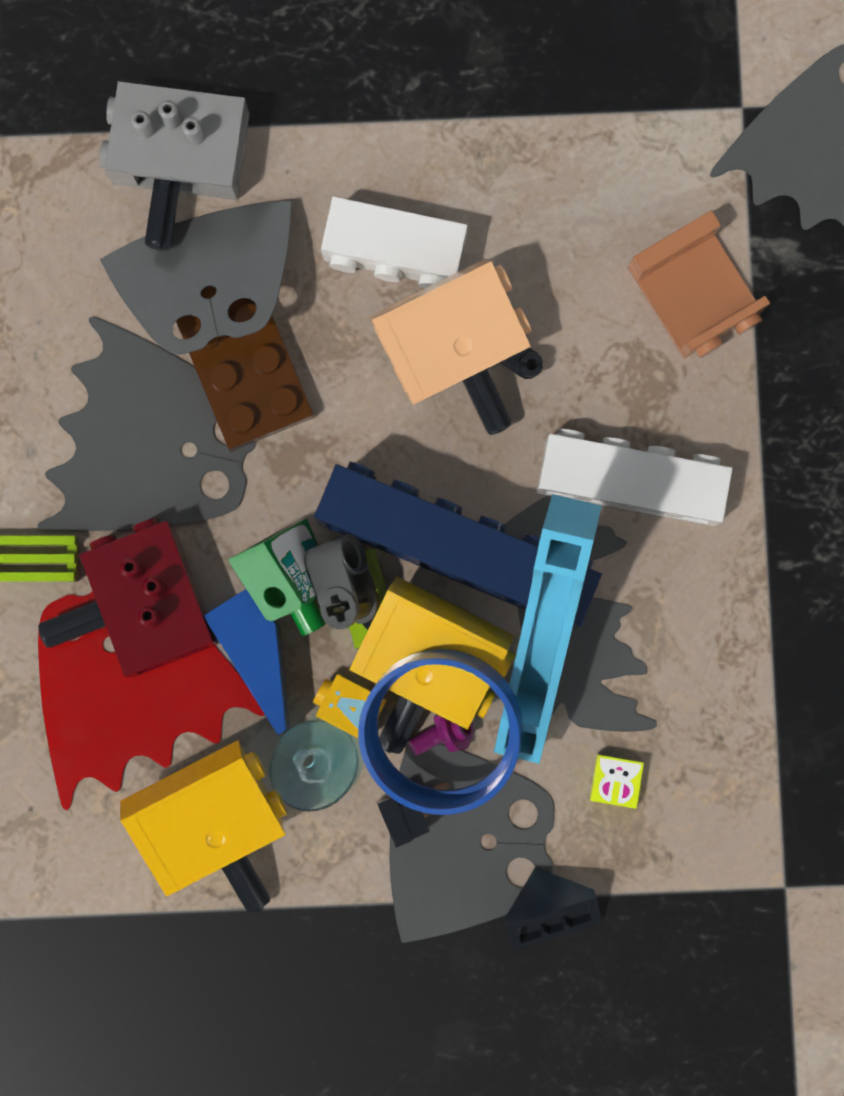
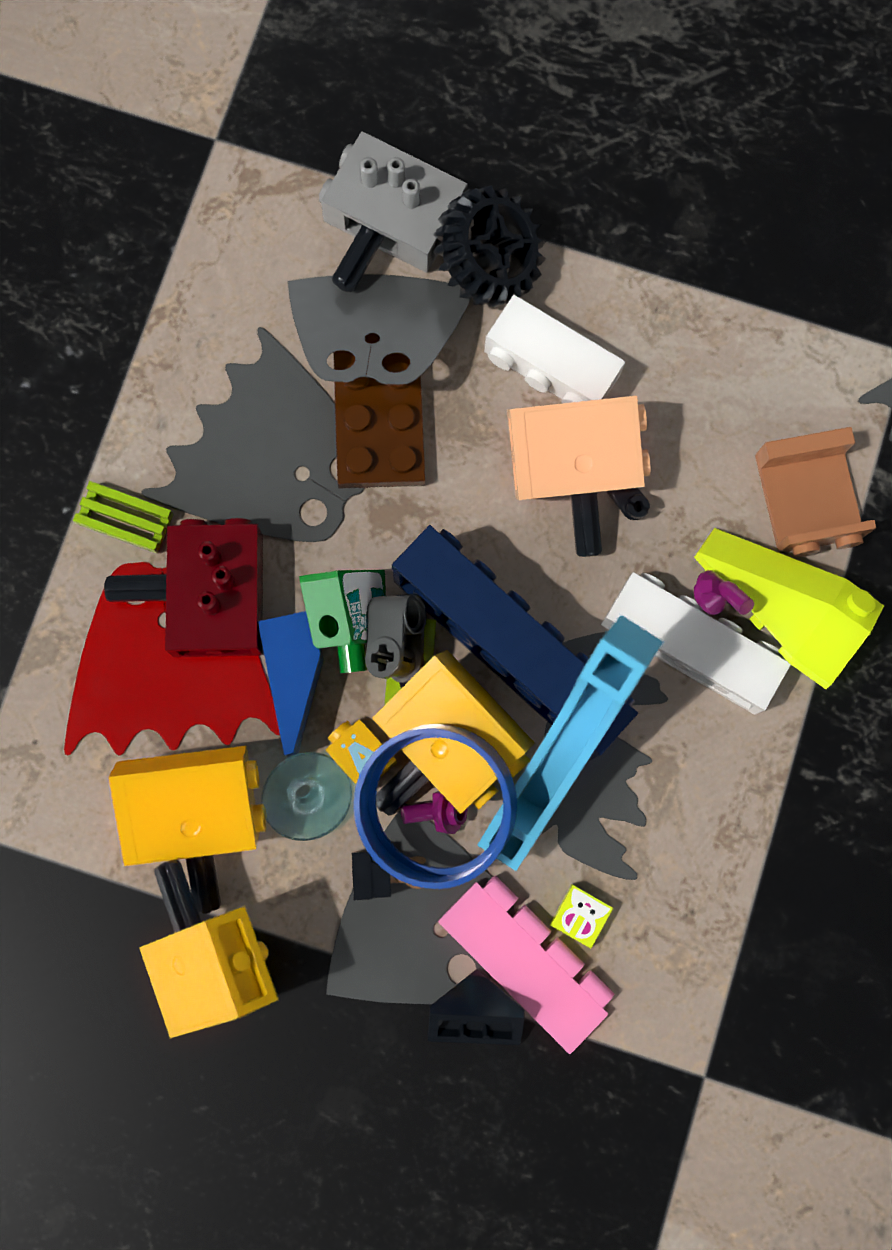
camera: 15 degrees right, 5 degrees down
(277, 964) = (205, 968): none -> yellow piece
(290, 129) = (498, 231): none -> black gear
(586, 852) = (532, 975): none -> bright pink windscreen
(634, 426) = (713, 593): none -> magenta plate
(726, 407) = (807, 609): none -> neon yellow wedge

